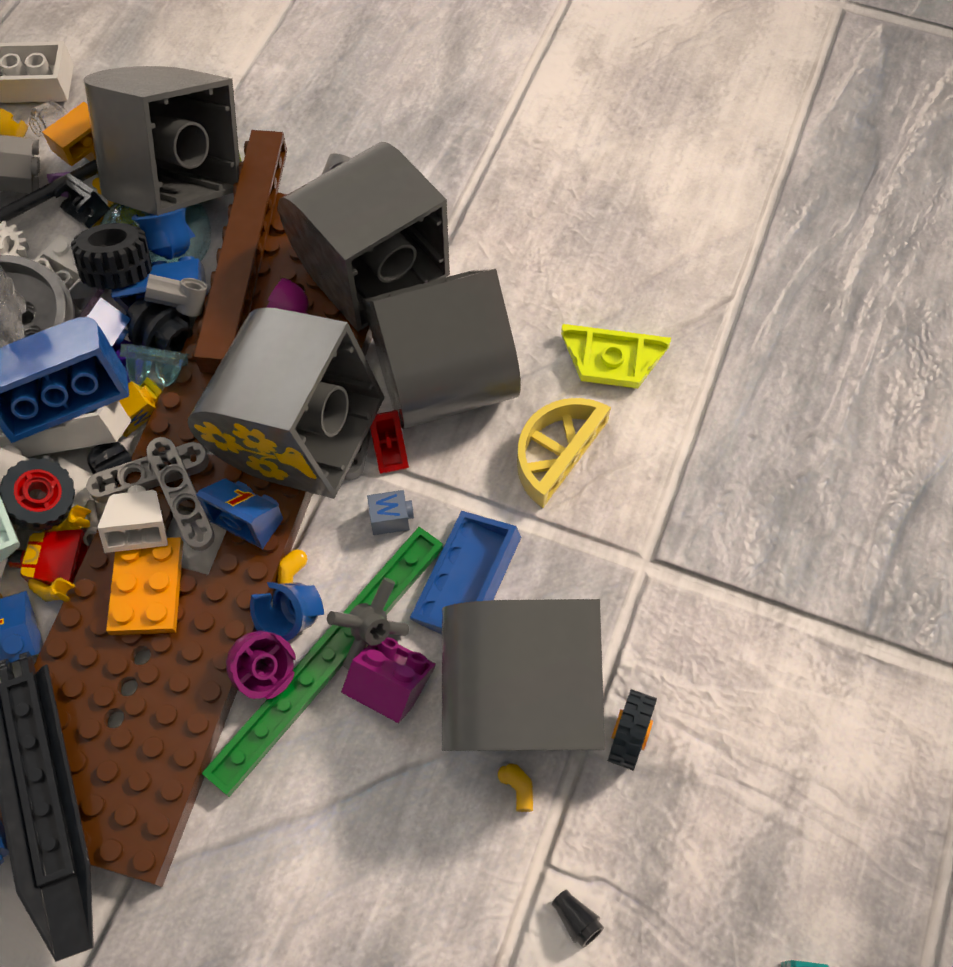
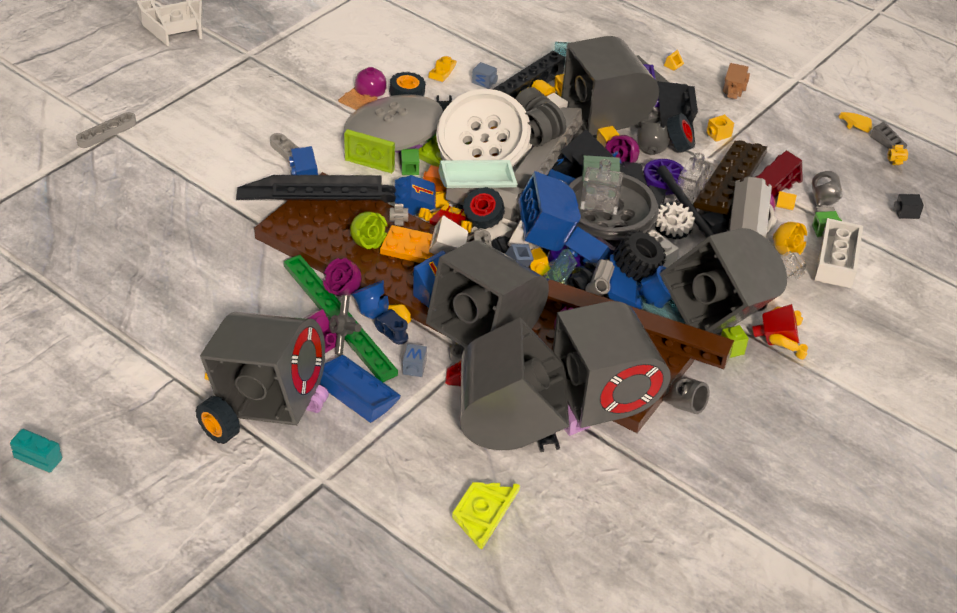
camera: 105 degrees right, 20 degrees down
(80, 624) = (398, 214): none -> light grey gear
(137, 659) = (368, 230): none -> lime cylinder
(152, 412) = (520, 253): none -> sand blue brick
(325, 570) = (392, 327): none -> dark blue piece
(558, 469) = (428, 473): light yellow window -> none
(577, 918) = (138, 376): black cone -> none

